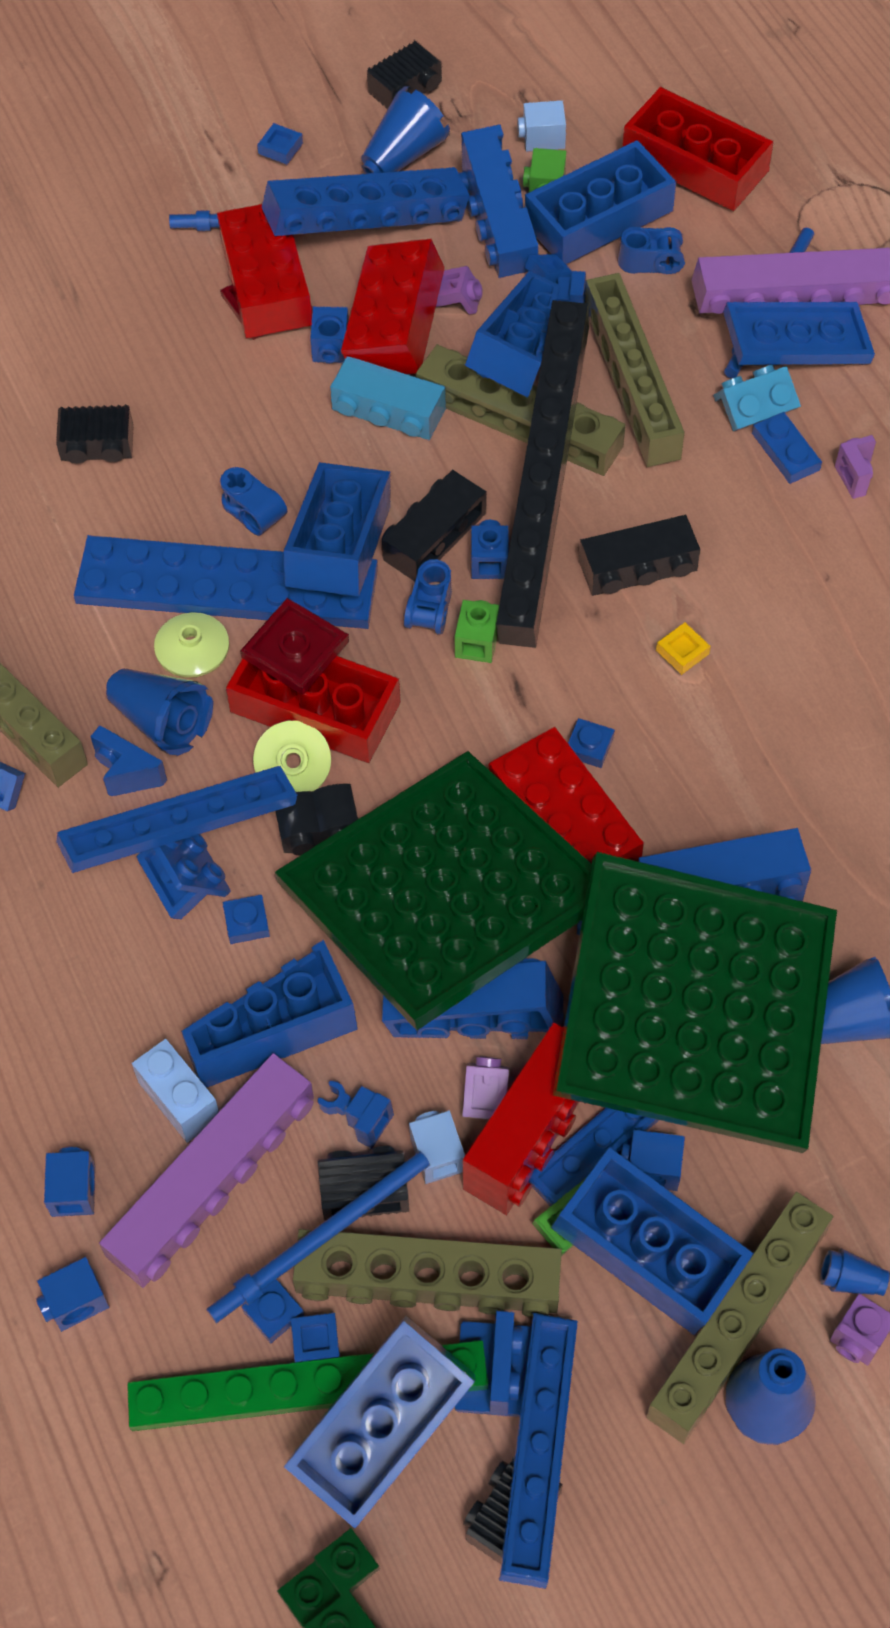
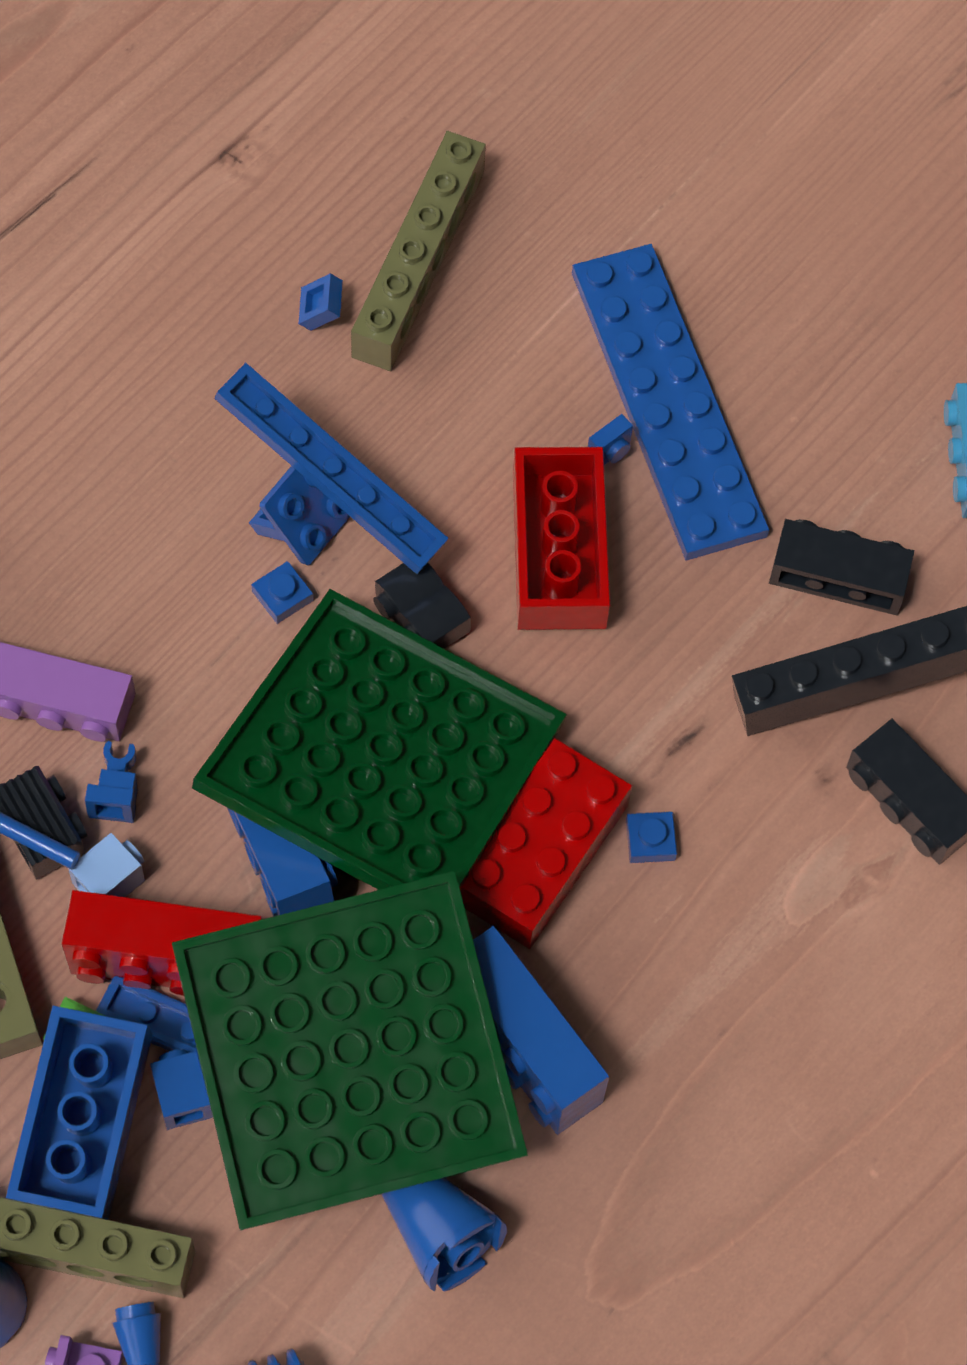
camera: 60 degrees right, 5 degrees up
(94, 433) = (778, 192): black brick -> none
(129, 765) = (396, 407): blue slope -> none
(162, 707) = (473, 405): blue cone -> none
(175, 1090) = (62, 607): light blue brick -> none
(192, 656) = (574, 416): yellowish green dish -> none
(244, 624) = (614, 439): none -> blue plate
(251, 500) = (773, 377): blue piece -> none
(280, 1017) = (171, 661): blue wedge -> none
(294, 646) = (594, 488): dark red tile -> none
(299, 739) = (467, 538): yellowish green dish -> none
(337, 529) = (768, 468): blue brick -> none
(428, 602) = (735, 603): blue piece -> none
(476, 631) = (723, 657): bright green brick -> none
(484, 1087) = (195, 886): medium lavender bracket -> none
(489, 544) = (825, 629): blue brick -> none
(683, 648) = (818, 885): yellow plate -> none

